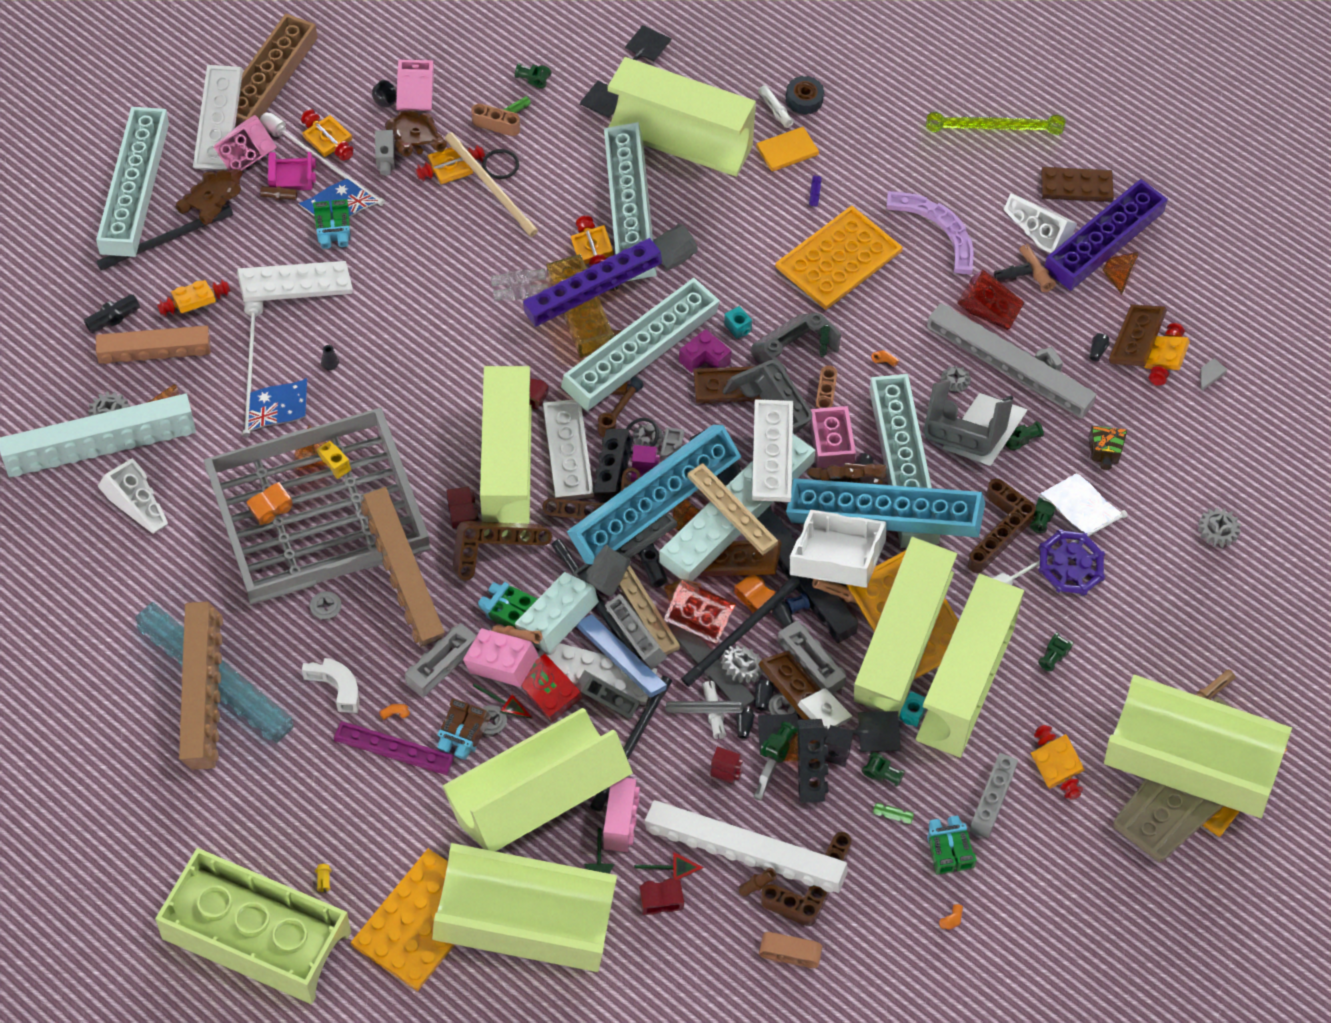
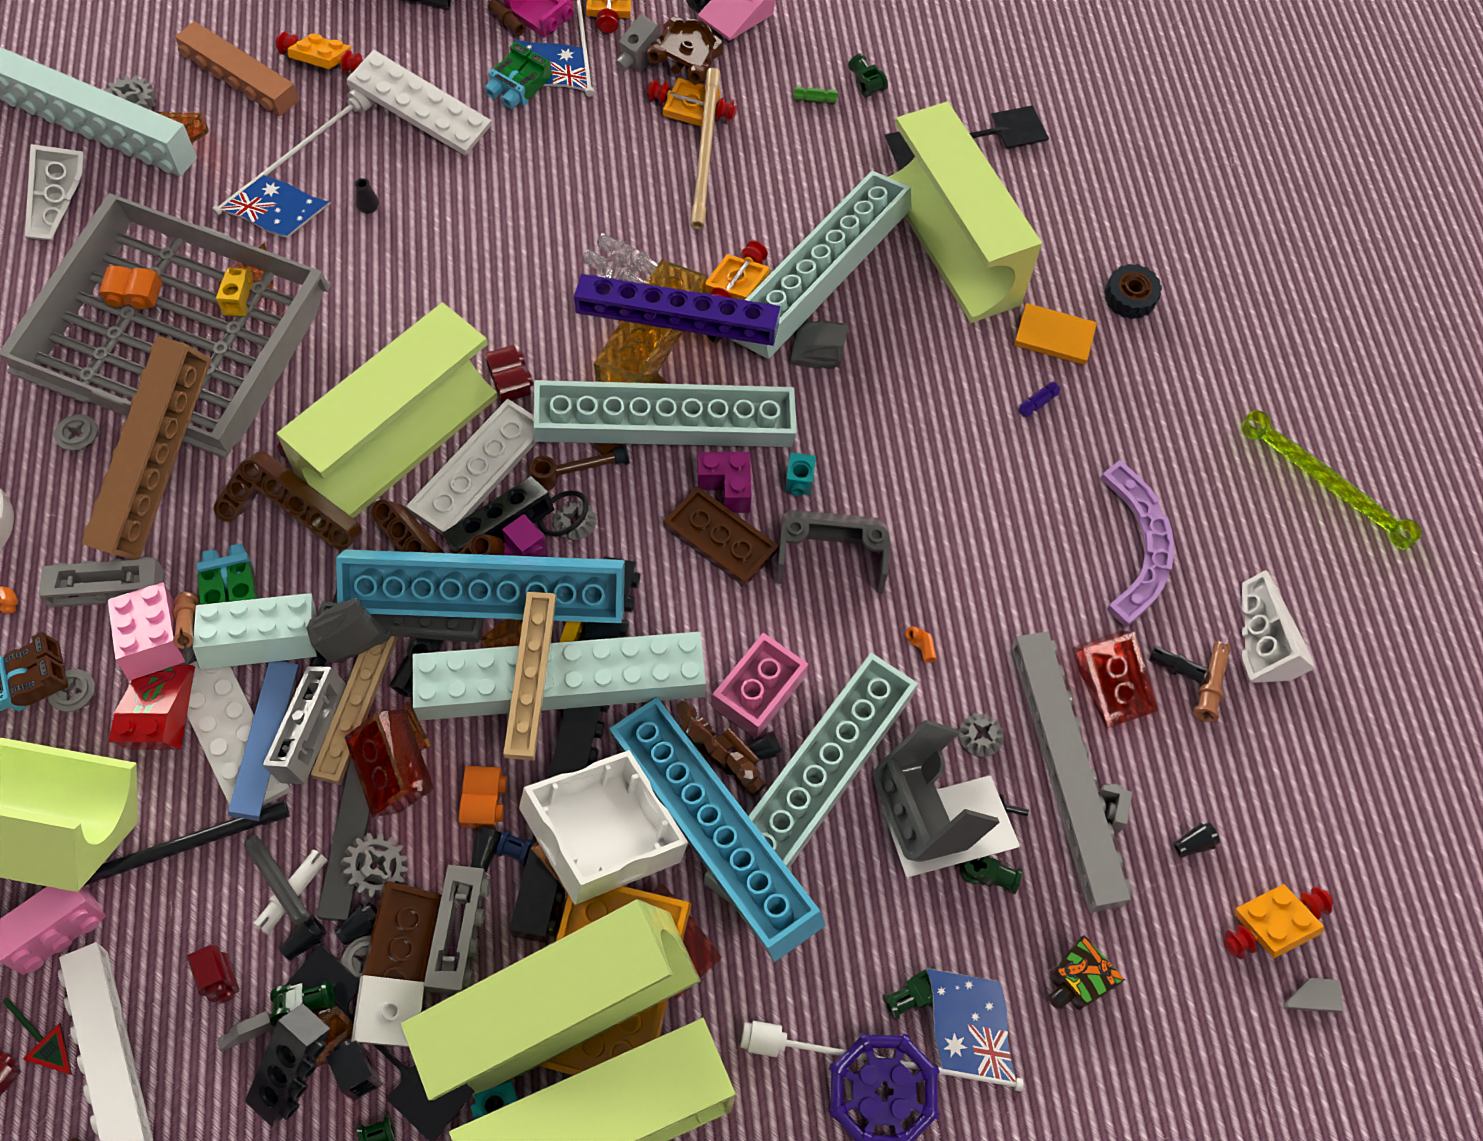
camera: 40 degrees right, 5 degrees up
(111, 313) = (238, 16): black piece -> none
(495, 119) = (782, 92): nougat beam -> none
(500, 151) = (743, 121): black tyre -> none
(512, 705) = (108, 695): piece -> none
(607, 694) = (197, 767): dark grey slope -> none
(672, 441) = (592, 546): light grey tile -> none
(697, 671) = (323, 829): black piece -> none
(744, 559) = (488, 737): reddish brown plate -> none
(772, 383) = (752, 568): dark grey windscreen -> none
(772, 451) = (648, 645): white plate -> none
(780, 111) = (1087, 287): white pin -> none
(824, 340) = (869, 567): clear green piece -> none
(828, 385) = (815, 617): nougat beam -> none
(838, 257) = (989, 490): light orange plate -> none
(1005, 528) = (847, 969): reddish brown beam -> none
(1077, 184) = (1365, 622): reddish brown plate -> none
(1105, 234) = (1341, 709): dark purple brick -> none
(1120, 269) = (1319, 767): clear orange slope -> none
(1137, 335) = (1261, 867): reddish brown plate -> none

